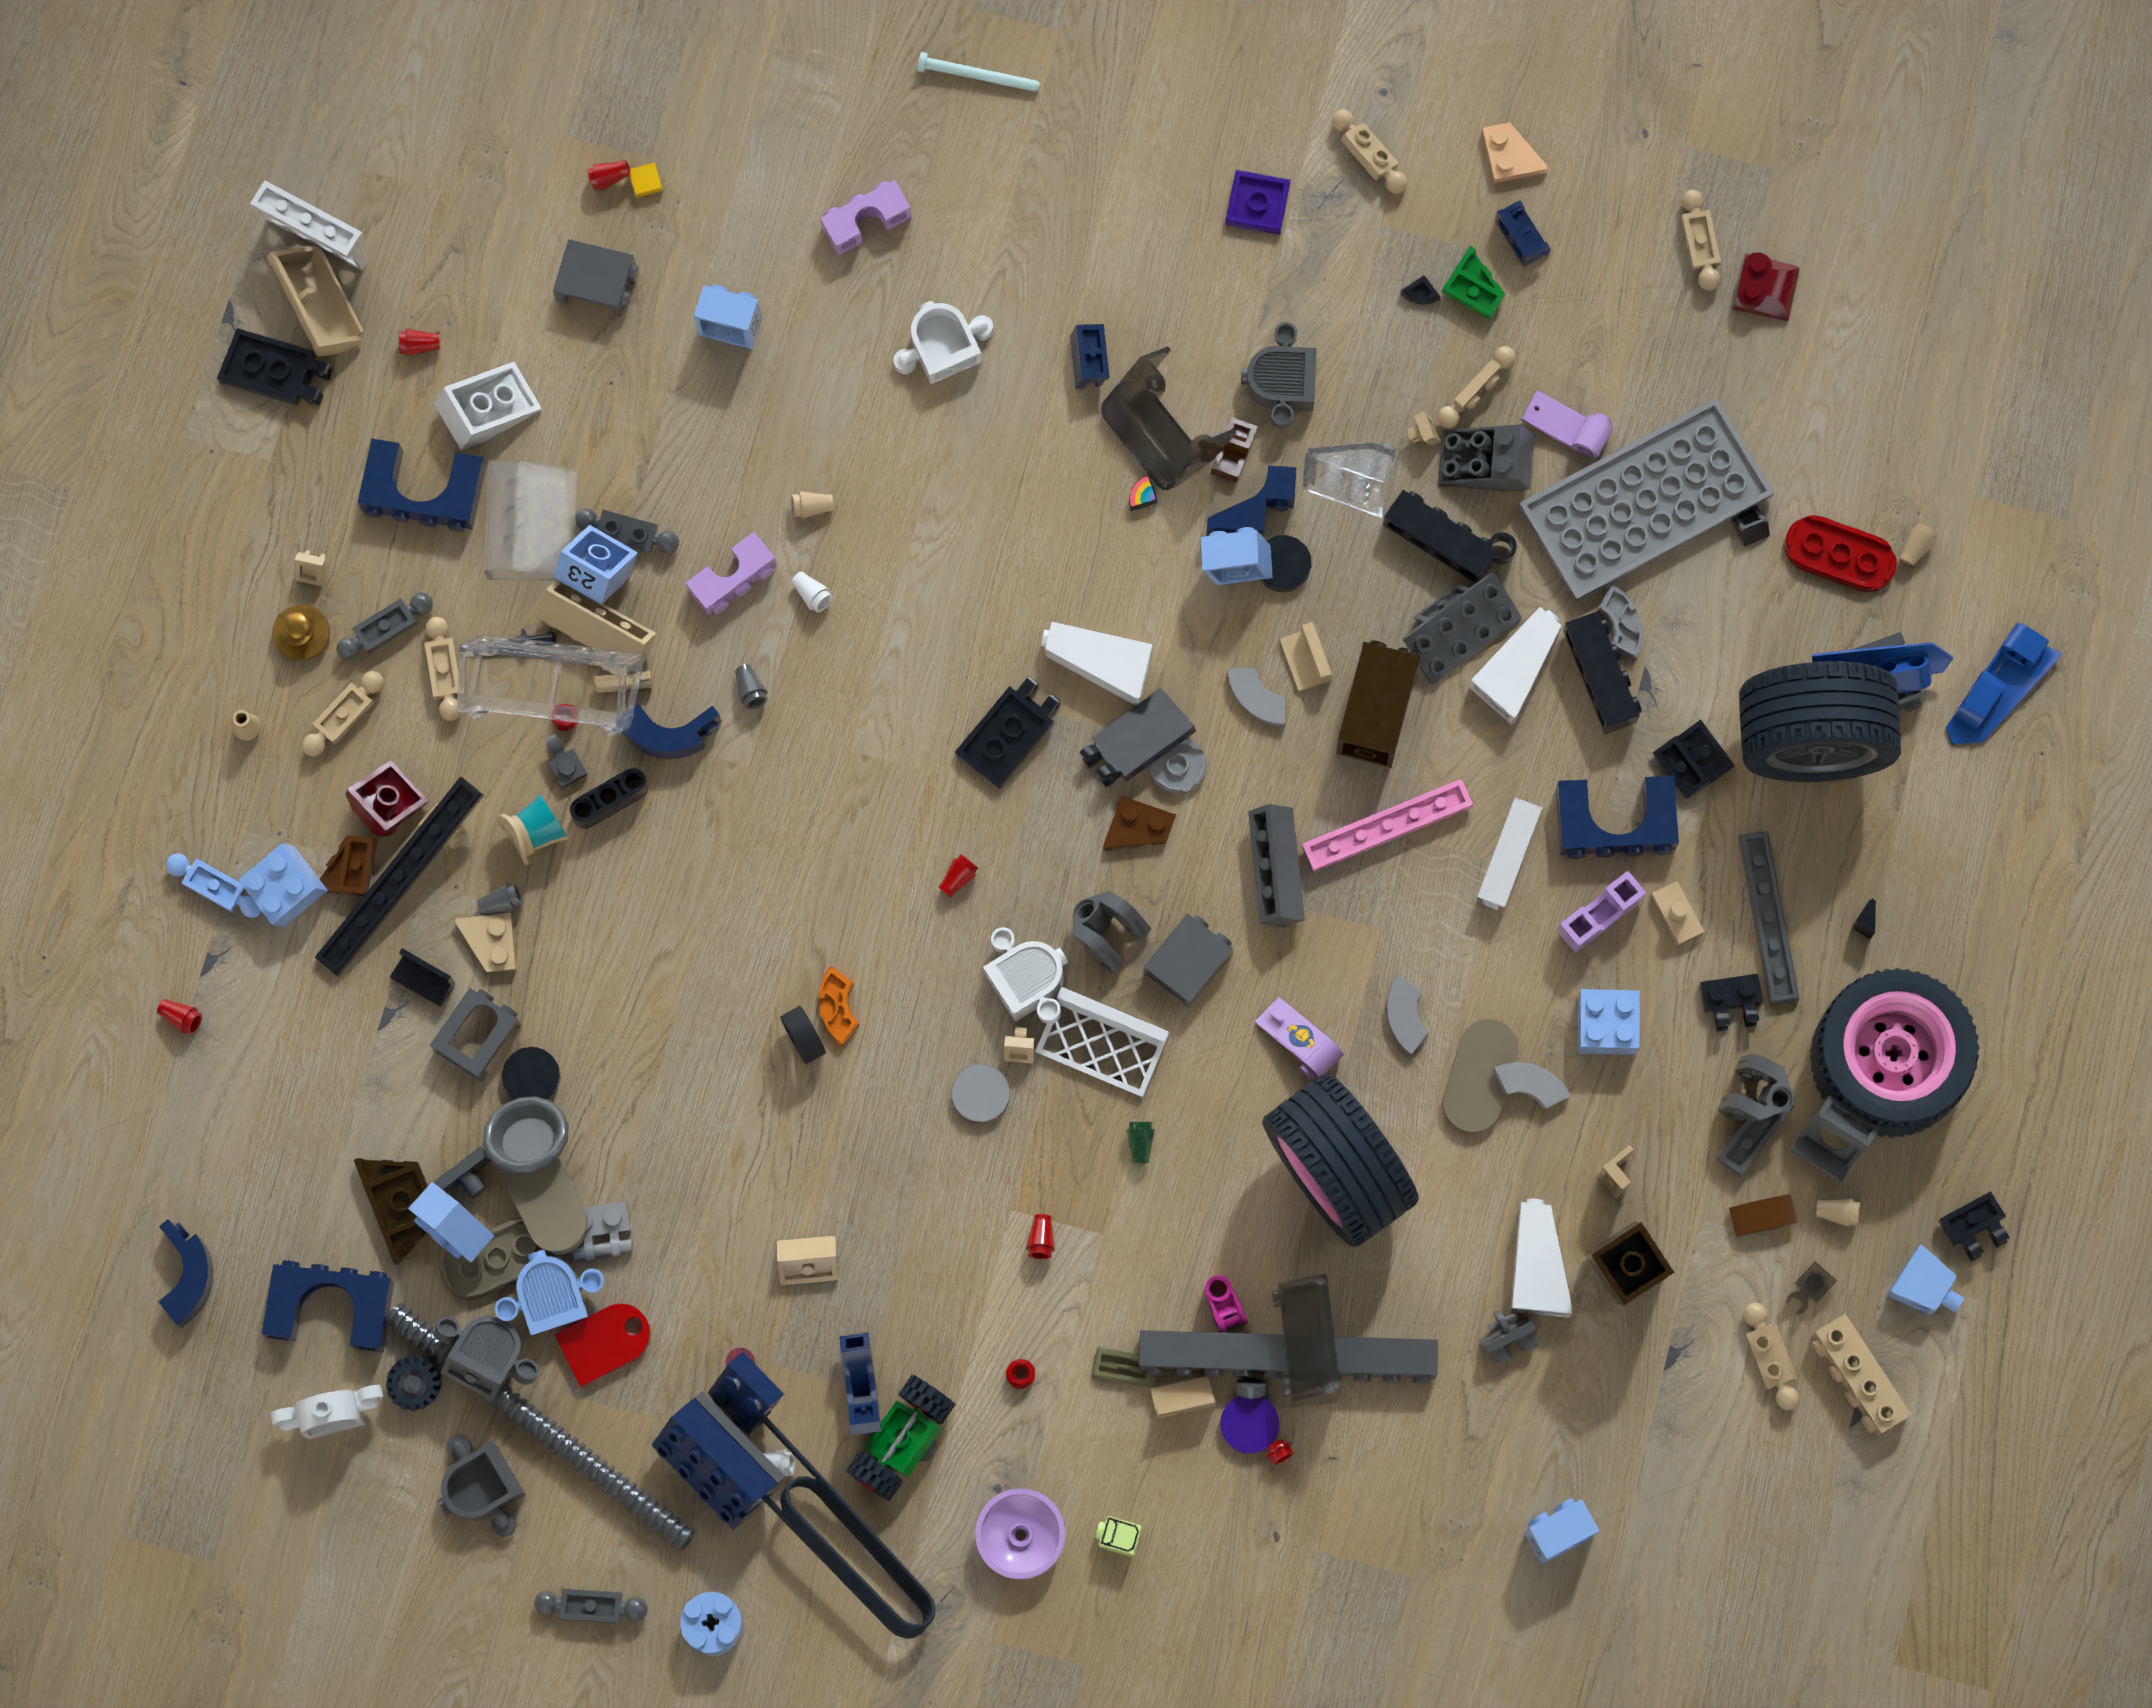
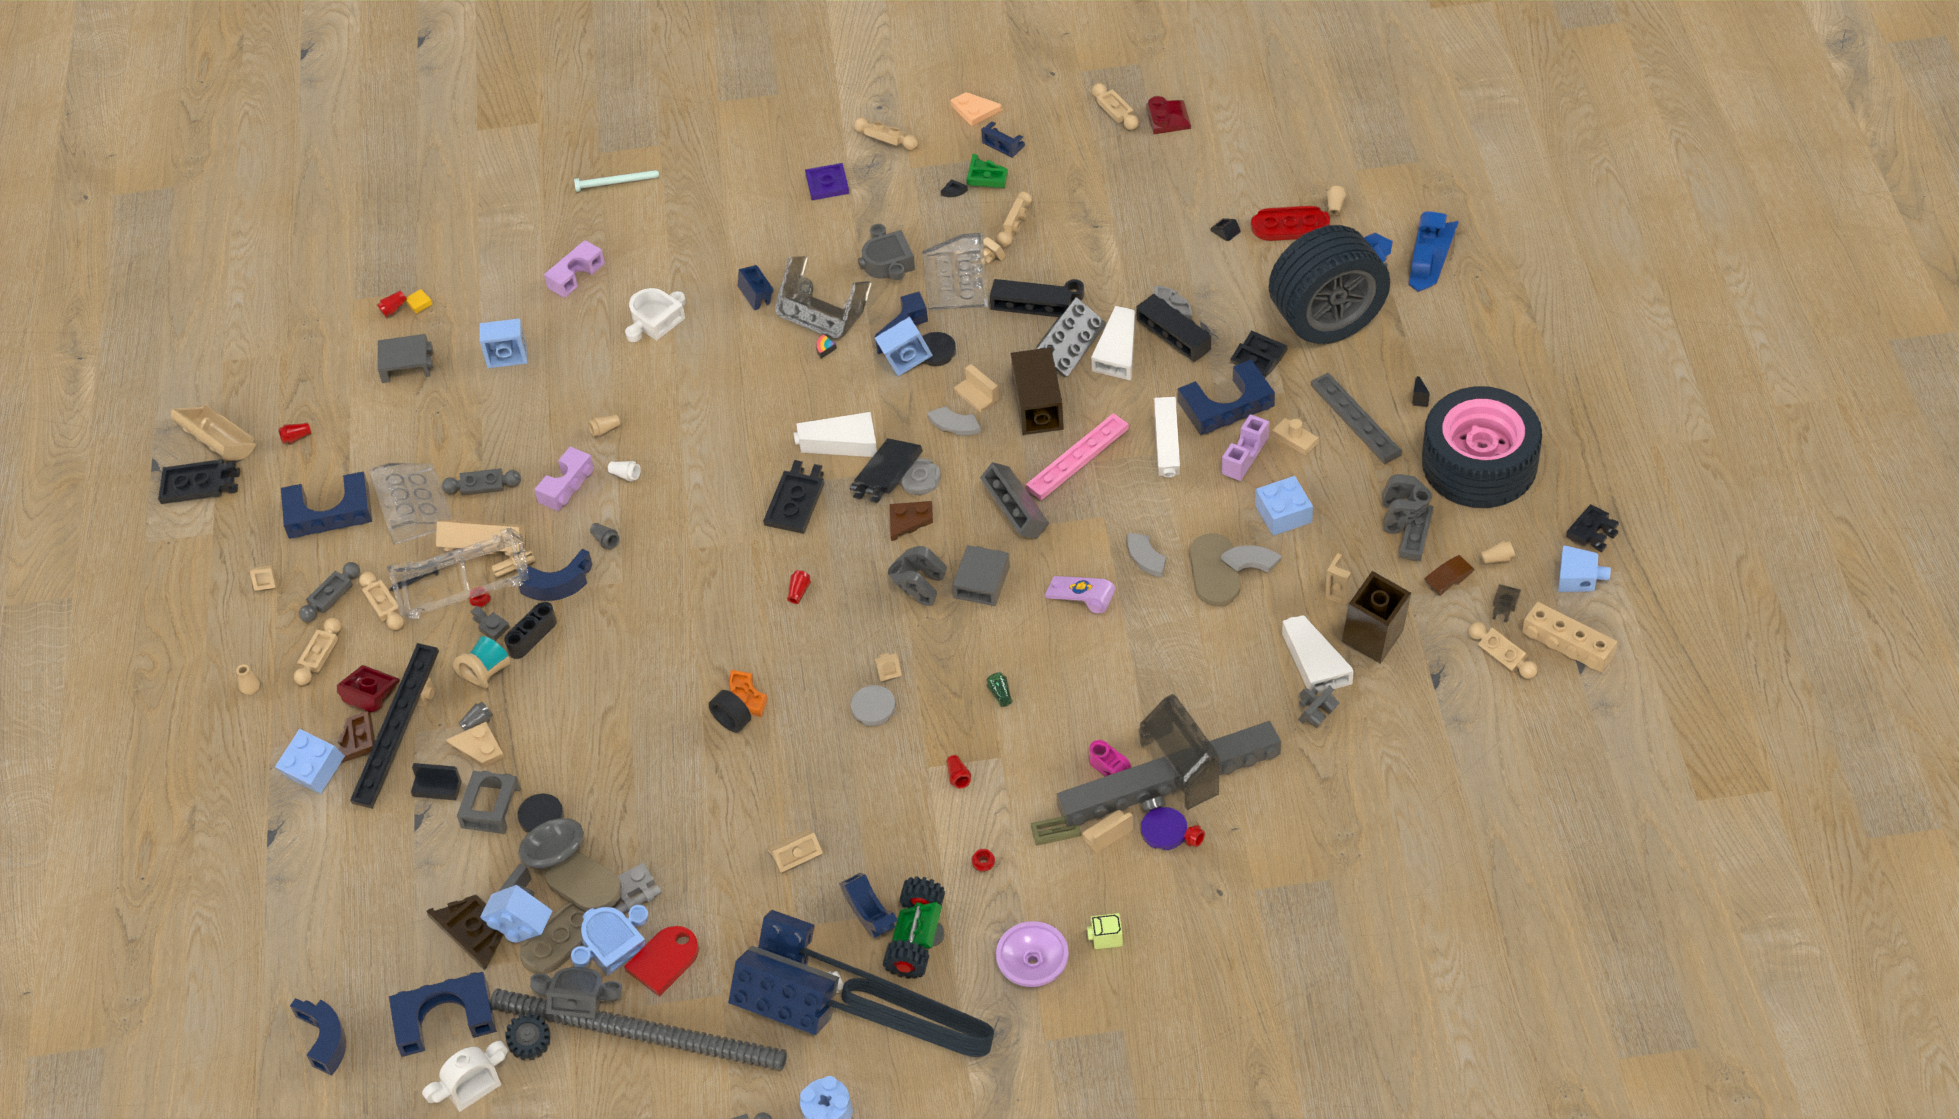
camera: 20 degrees left, 25 degrees down
(181, 1016) = (260, 872): red cone -> none
(212, 885) = (258, 784): light blue plate -> none
(301, 632) = (269, 617): pearl gold plate -> none
(309, 223) = (196, 380): white fence -> none
(480, 1485) = (608, 1086): dark grey piece -> none
(486, 405) = (354, 448): white slope -> none
(595, 564) = (466, 501): light blue brick -> none
(1026, 976) = (872, 623): white piece -> none
(1115, 1019) = (944, 624): white fence -> none
(1234, 455) = (874, 304): slope -> none
(1340, 1160) = (1146, 626): black wheel -> none
(1487, 458) = (1040, 250): dark grey slope -> none
(1561, 1531) = (1420, 800): light blue brick -> none
(1567, 426) = (1096, 221): lavender door -> none
(1646, 499) = (1152, 237): light grey plate -> none
(1729, 994) = (1355, 465): black plate -> none
(1843, 1123) = (1475, 486): dark grey panel -> none

